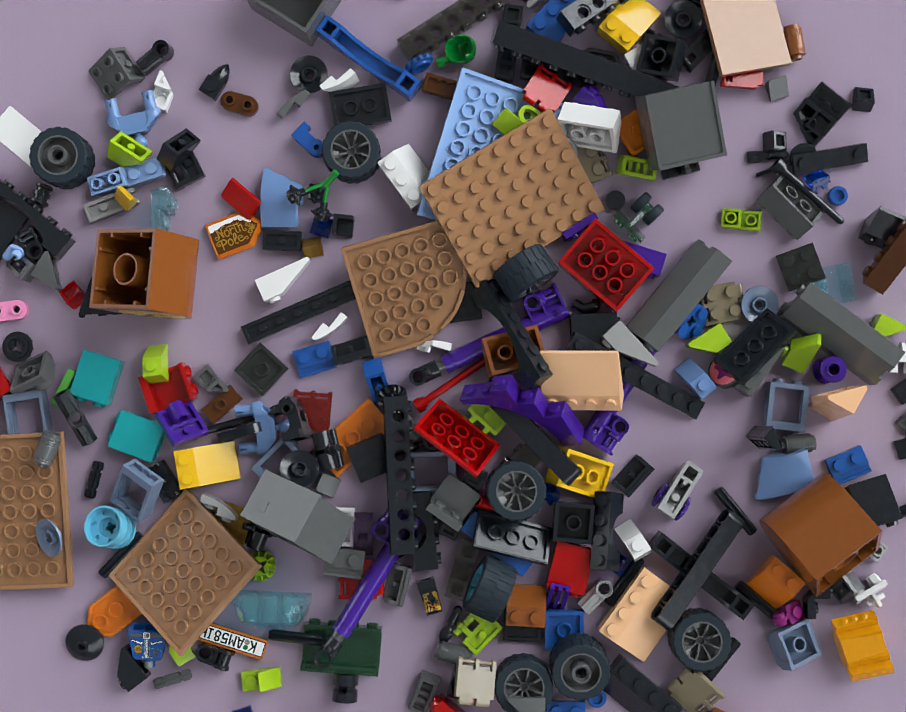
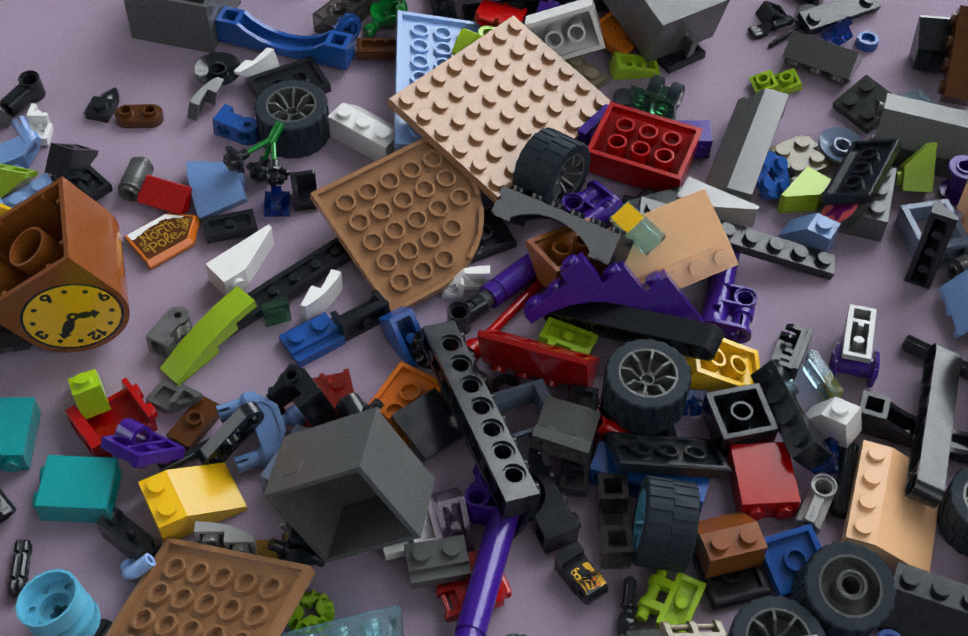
camera: 20 degrees left, 35 degrees down
(145, 478) = (70, 540): sand blue window -> none
(161, 507) = (134, 569): none -> light blue arm
(219, 325) = (169, 331): none -> flat silver leg
(223, 172) = (134, 177): none -> dark grey head
(244, 341) = (208, 333): none -> lime slope
(261, 369) = (241, 365): pearl dark grey plate -> none
(295, 332) = (276, 312): none -> clear green tile
(312, 247) = (277, 222): pearl gold slope -> none
(397, 584) = (527, 574): dark grey hinge -> none
(555, 605) = (775, 508): dark purple tile -> none
(559, 363) = (638, 227): none -> clear light blue tile
(644, 504) = (821, 376): none -> clear light blue tile
(780, 167) = (791, 24): black piece -> none

